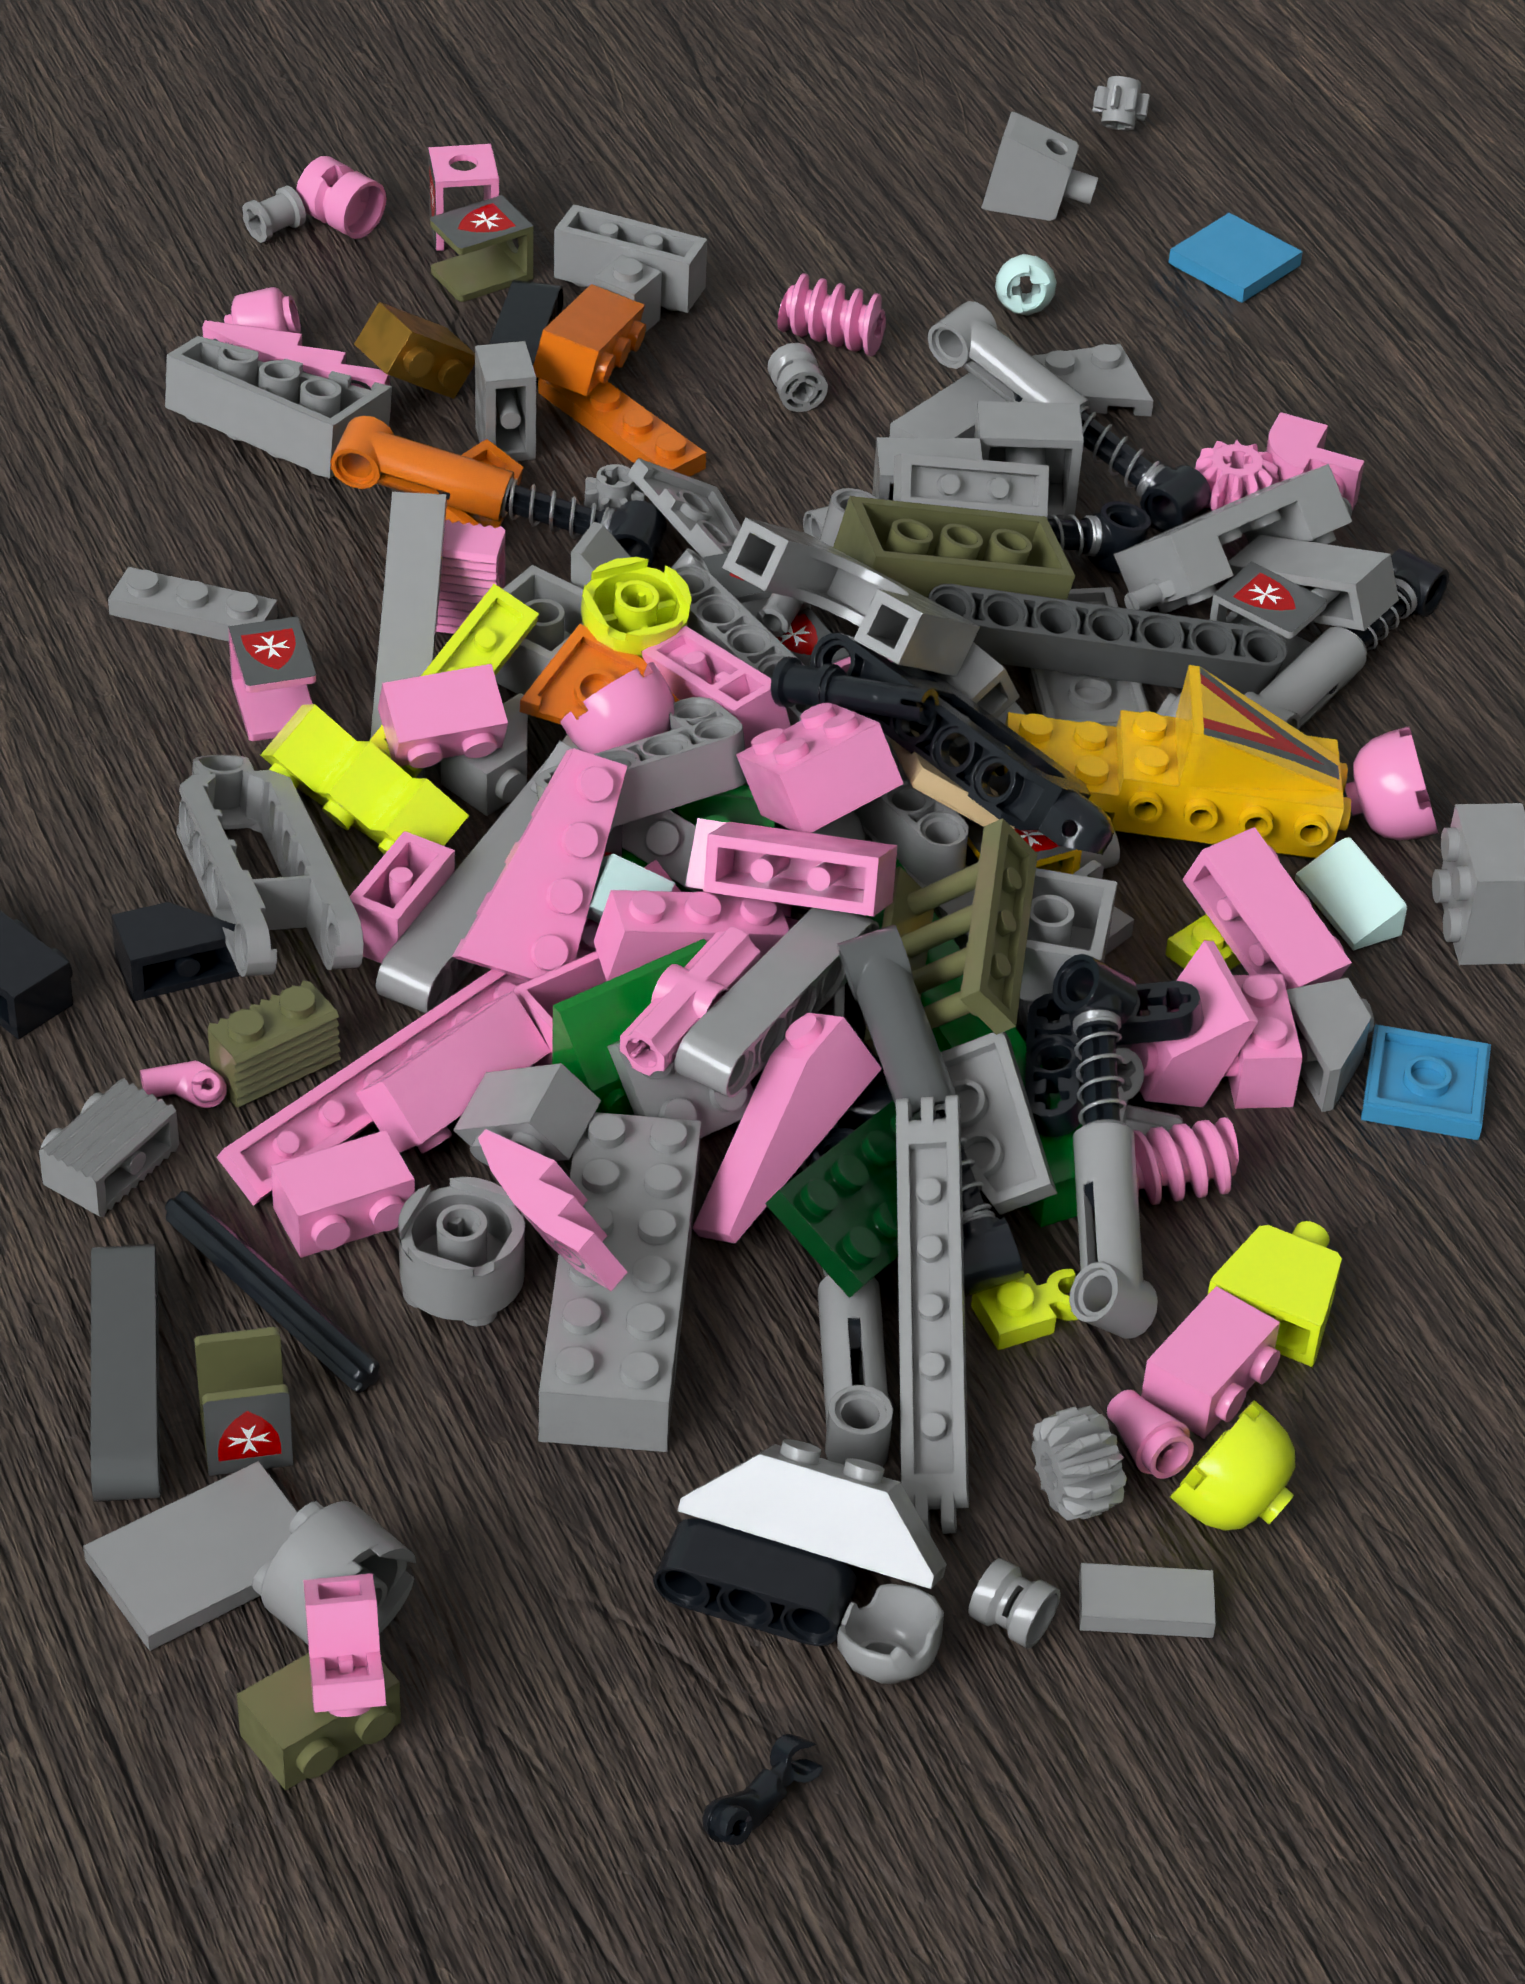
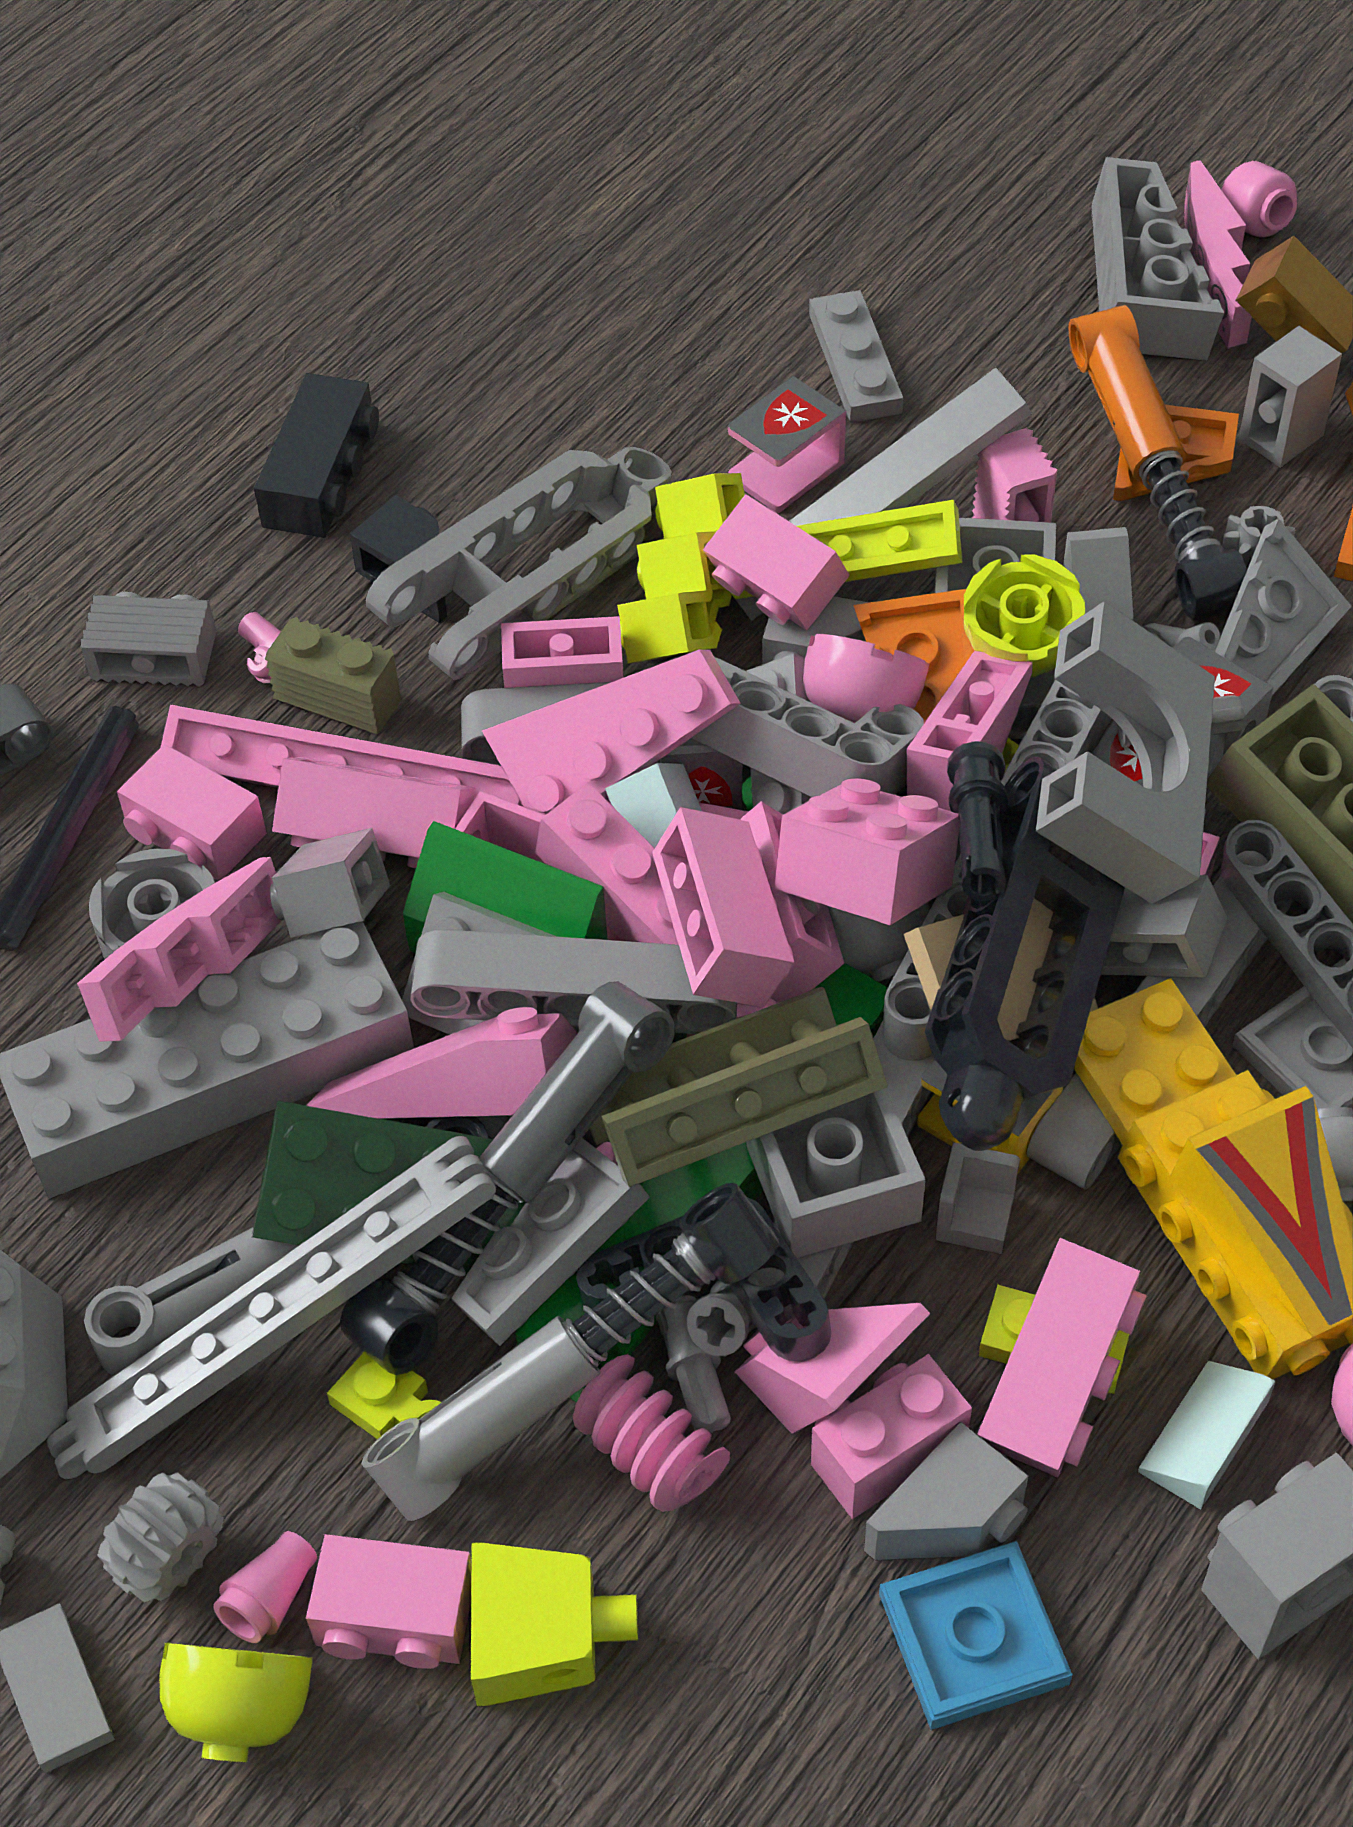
camera: 65 degrees right, 10 degrees up
(684, 997) = (502, 905): bright pink piece -> none

